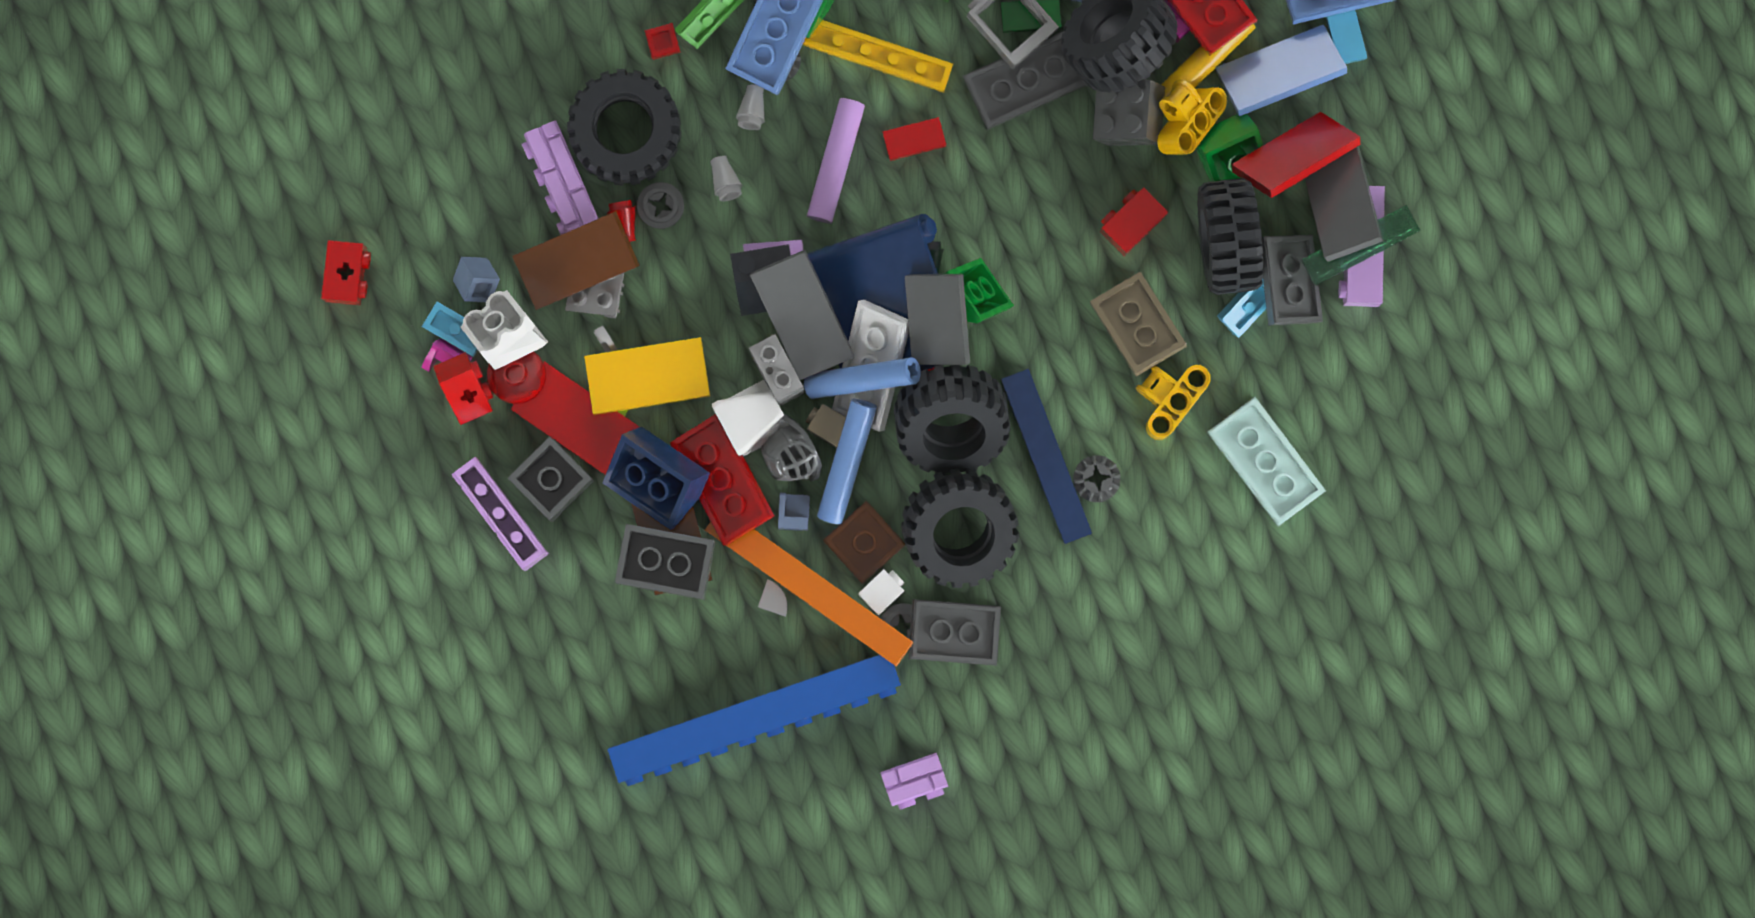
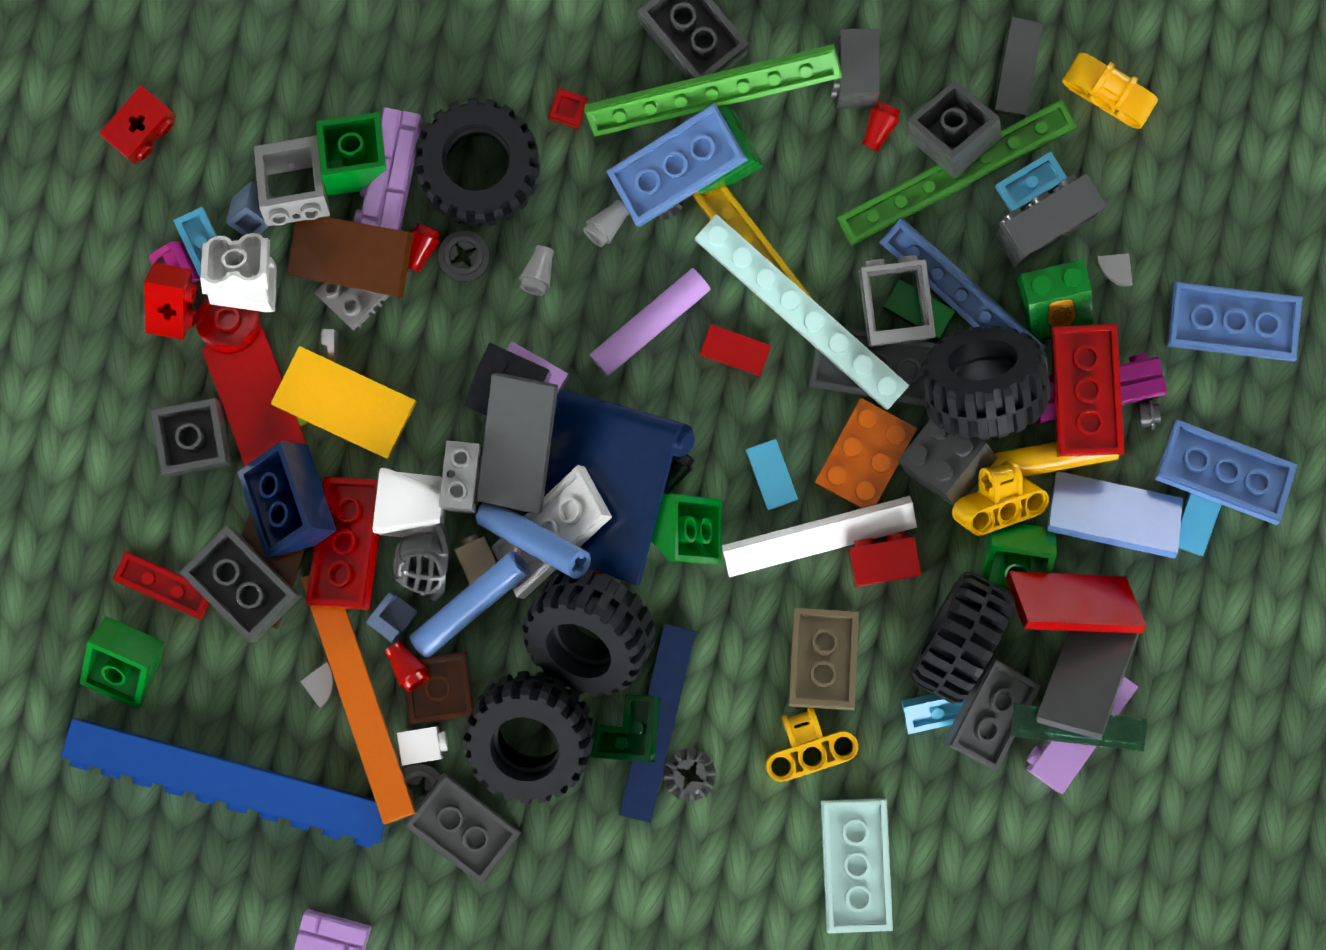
camera: 35 degrees right, 0 degrees up
(477, 219) = (286, 157): none -> light grey window
(500, 514) = (124, 438): lavender brick -> none
(524, 183) = (350, 152): none -> green slope
(603, 606) = (160, 584): none -> red tile
(613, 684) = (121, 662): none -> green slope
(833, 541) = (407, 668): none -> red cone
(937, 319) = (635, 532): dark grey tile -> none
(945, 76) = (801, 312): none -> light aqua plate
(1005, 213) = (771, 474): none -> medium azure tile
(1038, 477) = (637, 735): none -> dark green plate
(1065, 152) = (865, 455): none -> orange plate
(1072, 235) = (819, 536): none -> white tile

